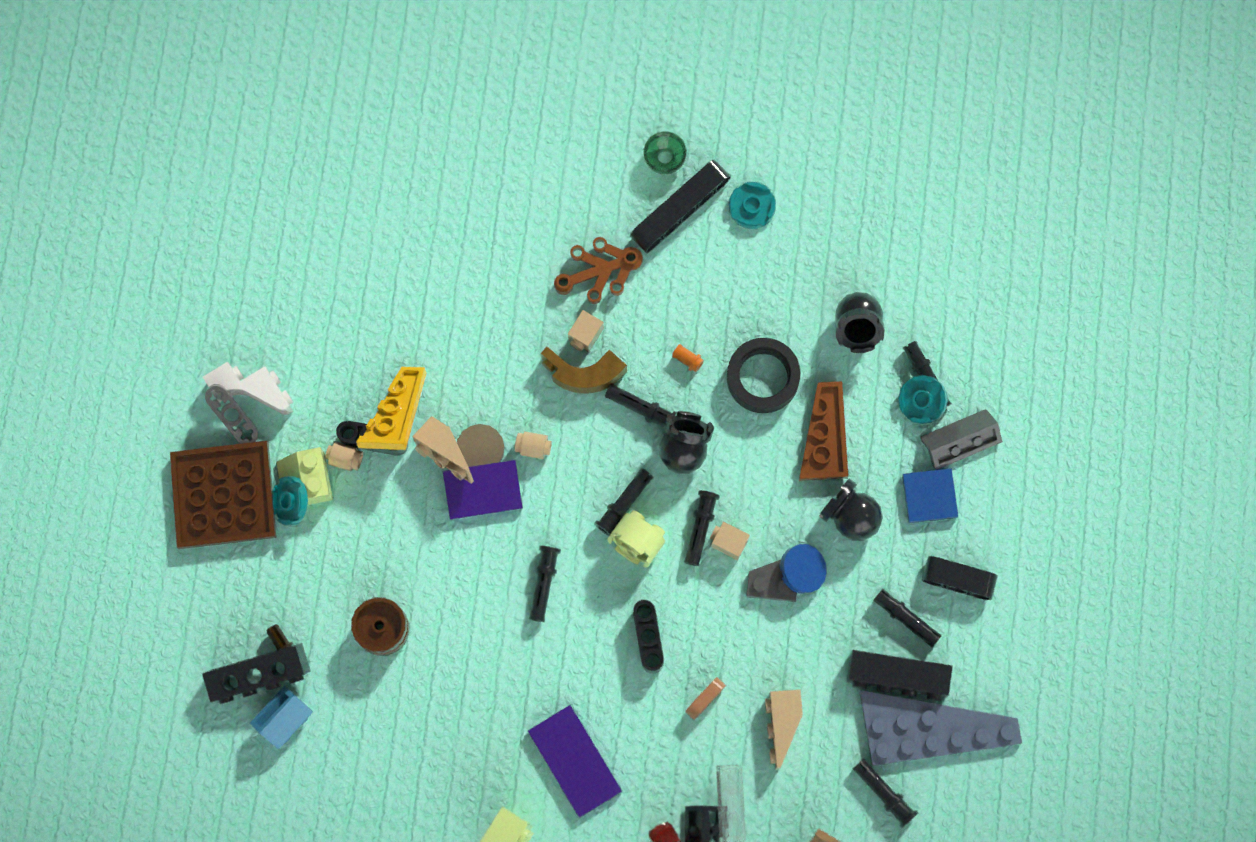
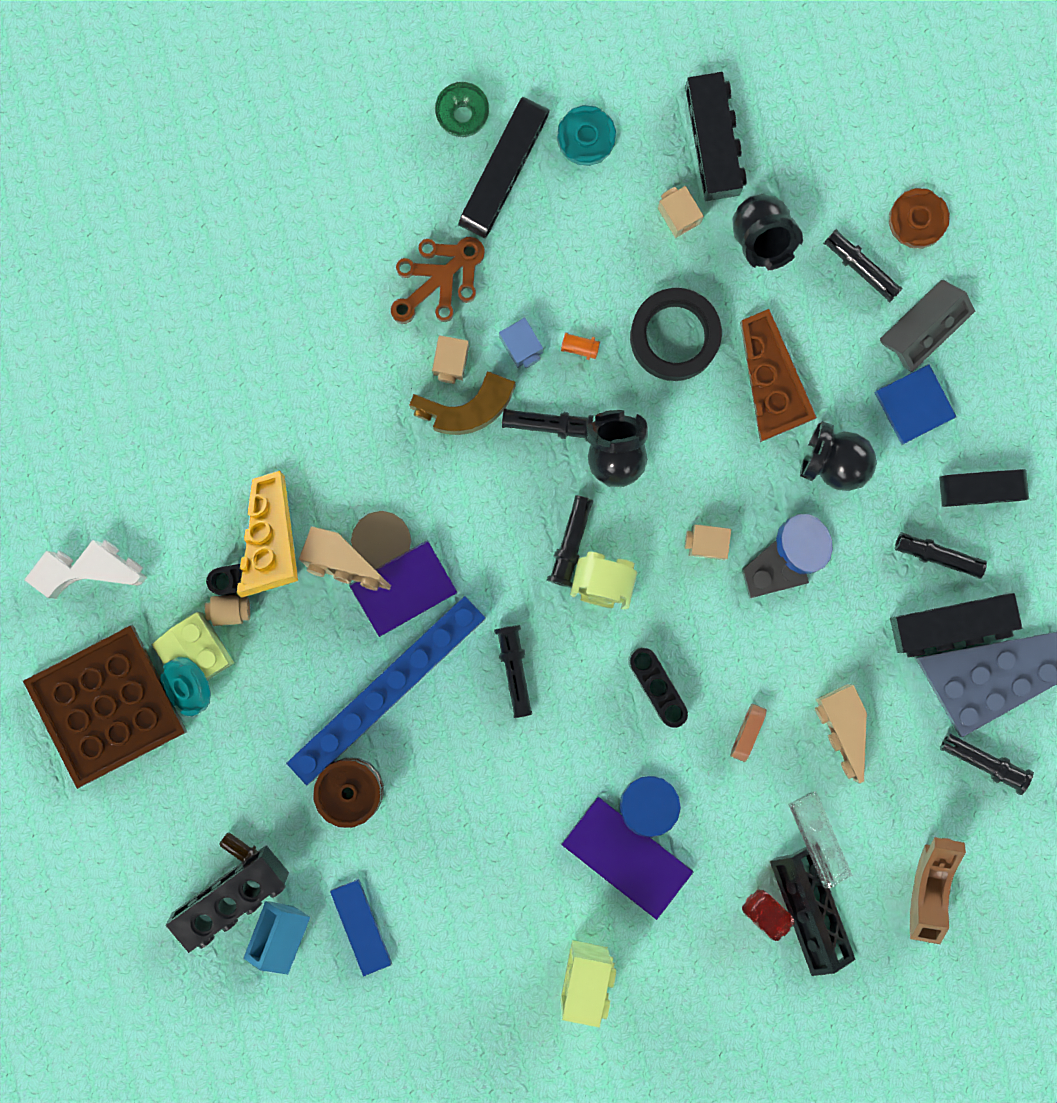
camera: 25 degrees left, 10 degrees up
(230, 424) = (53, 609): dark grey beam -> none
(348, 736) = (361, 927): none -> blue tile
(441, 560) = (386, 690): none -> blue brick
(533, 445) = (441, 515): tan brick -> none
(607, 726) = (650, 806): none -> blue tile
(643, 339) = (521, 343): none -> medium blue brick
(703, 516) = (667, 524): black pin -> none
(801, 285) = (679, 210): none -> tan brick
(848, 240) = (714, 136): none -> black brick
(922, 399) = (868, 295): teal tile -> none
(984, 356) = (919, 218): none -> dark orange tile

